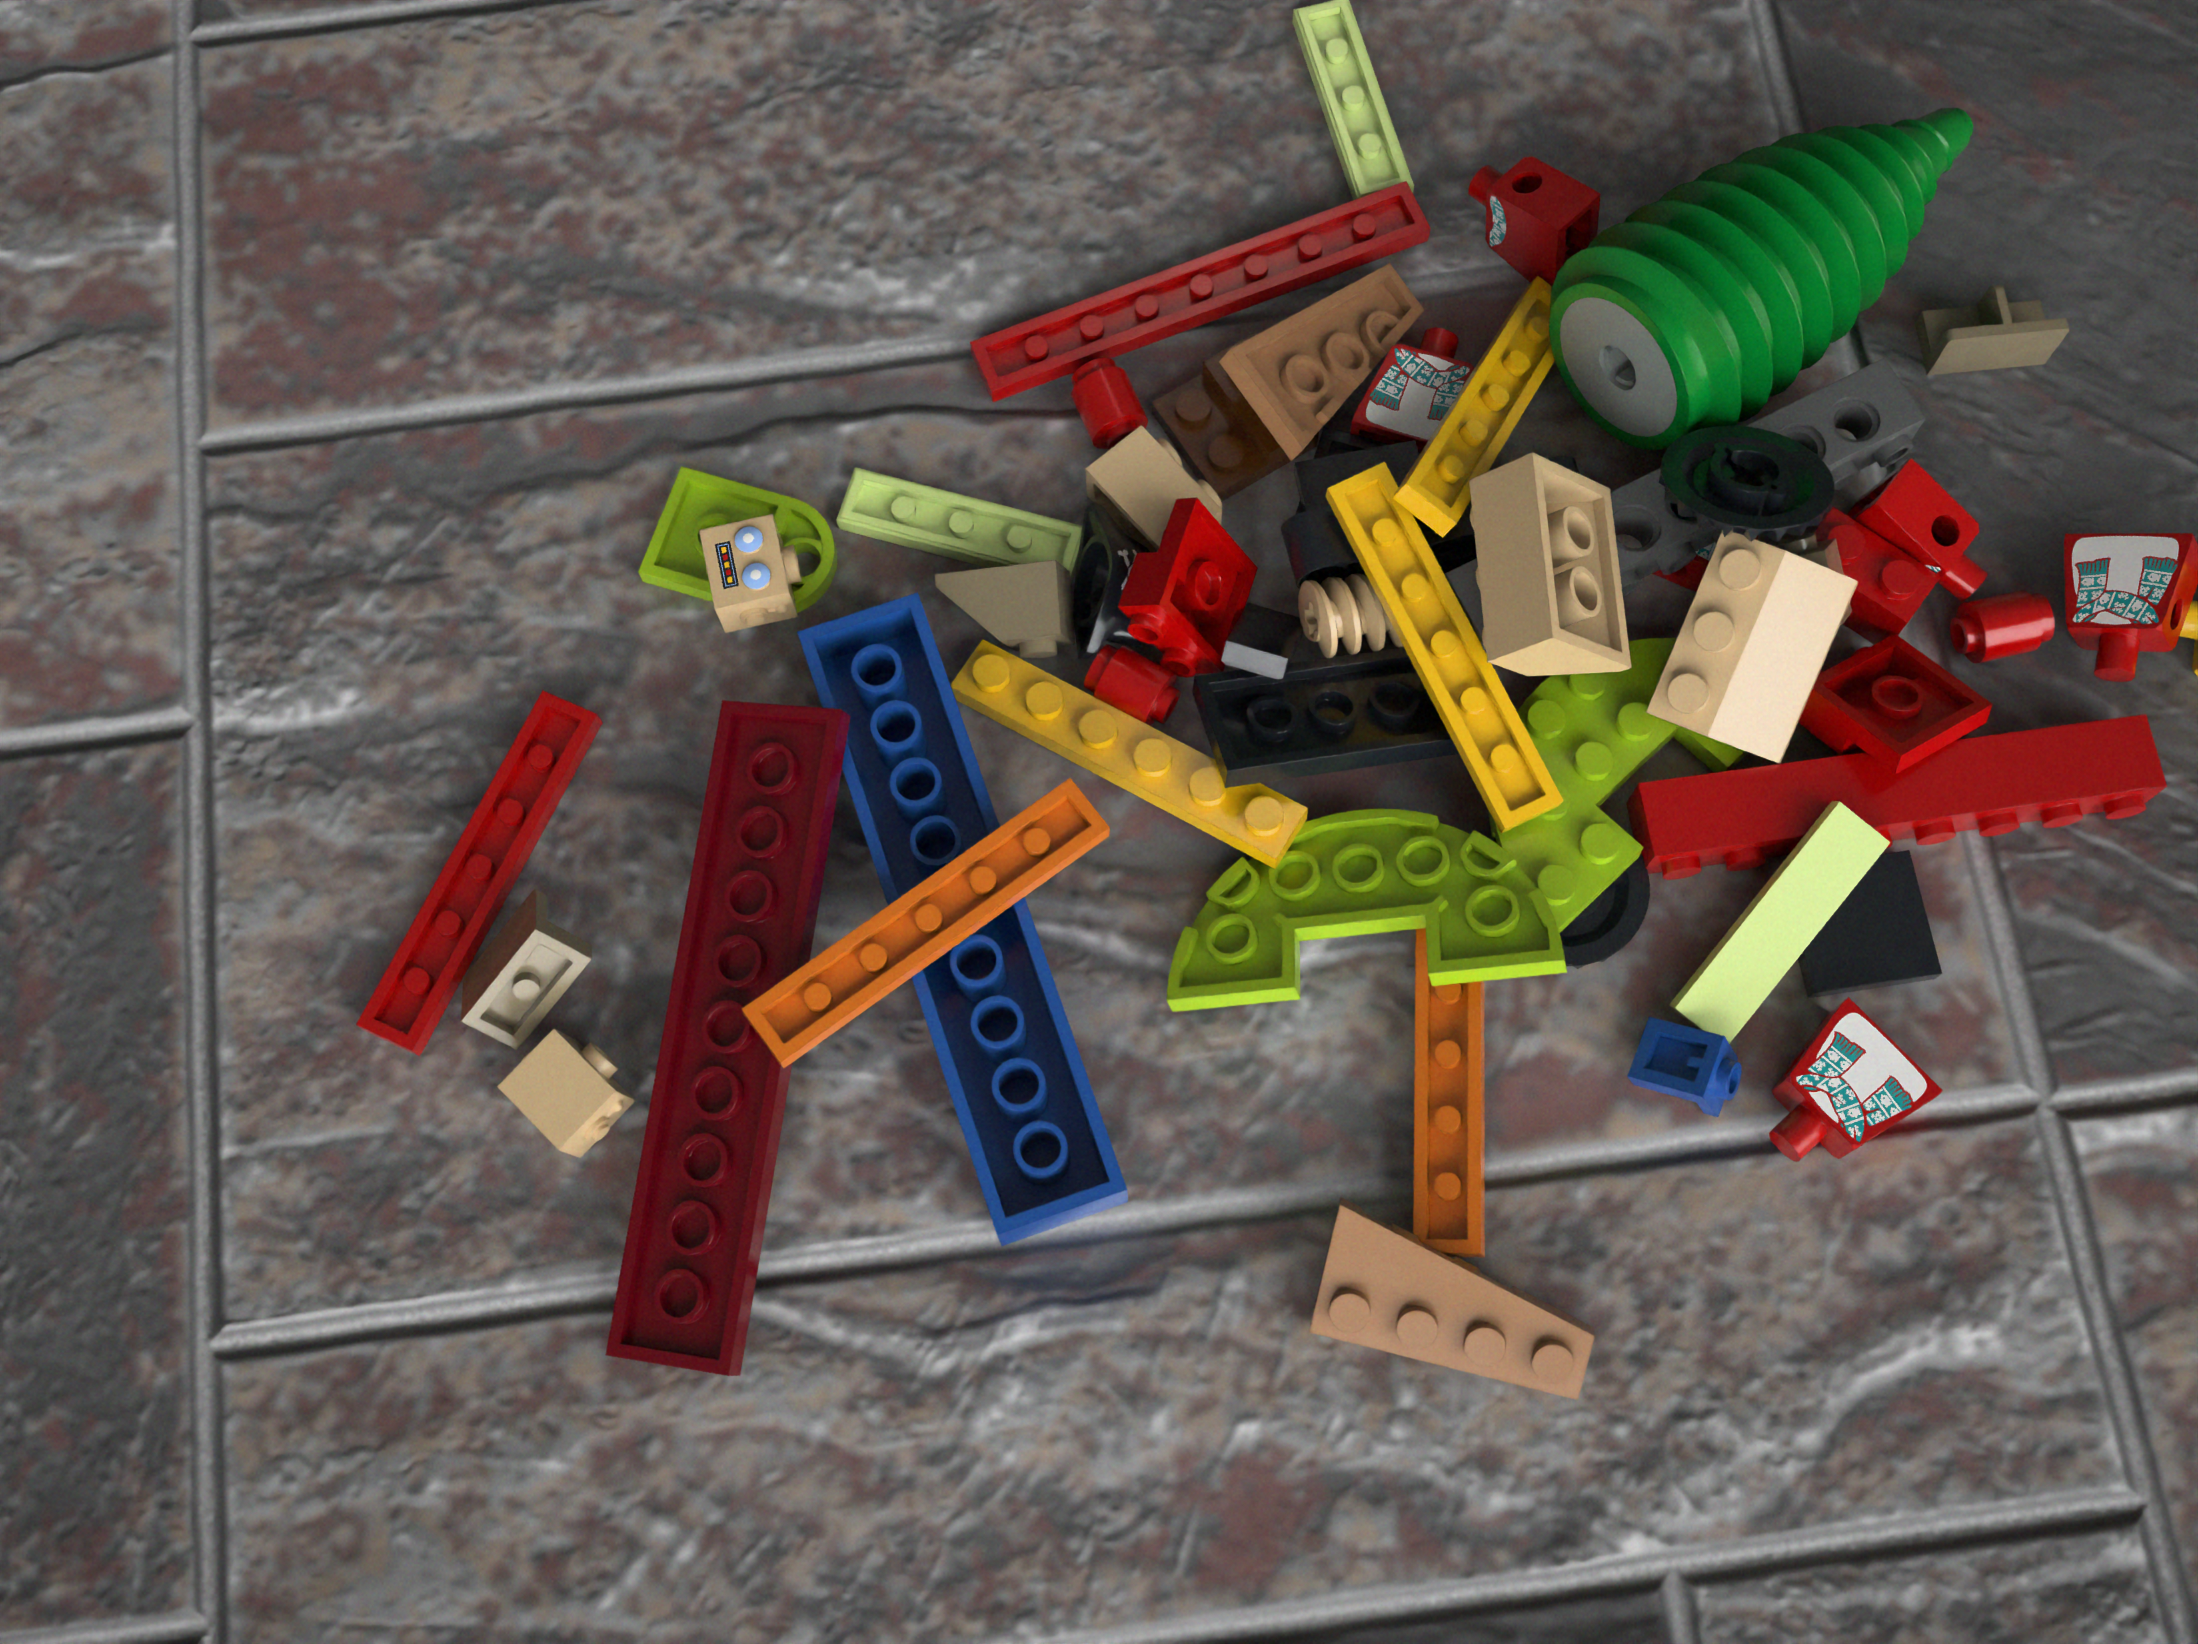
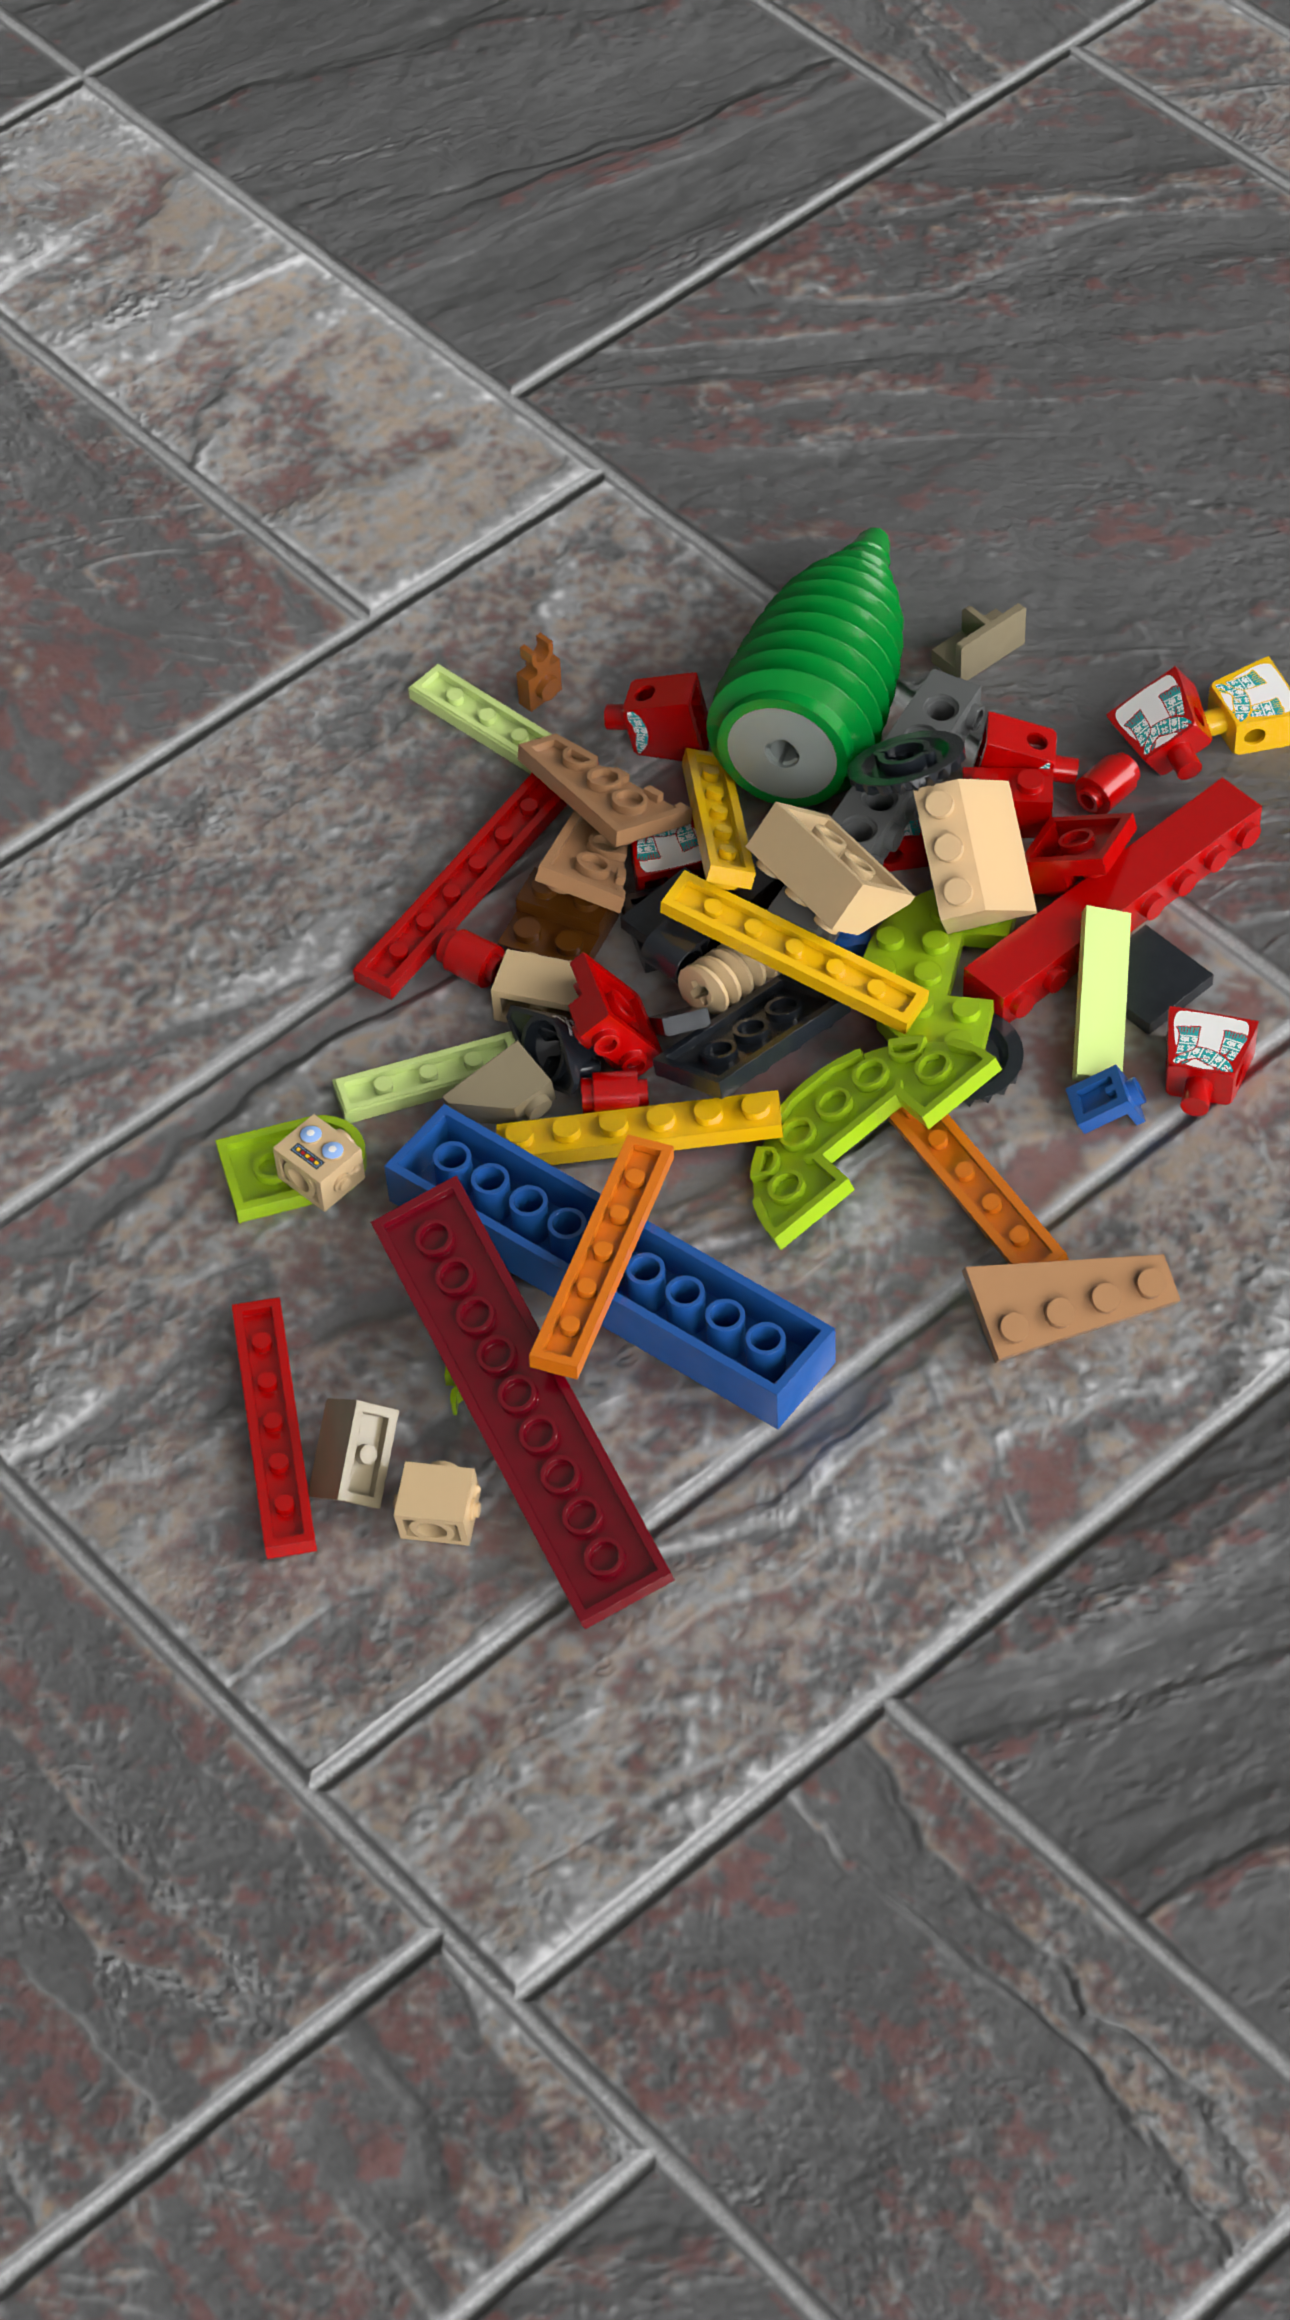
camera: 35 degrees left, 20 degrees down
(1387, 286) = (600, 792): none -> medium nougat wing
(1443, 81) = (541, 676): none -> dark orange plate

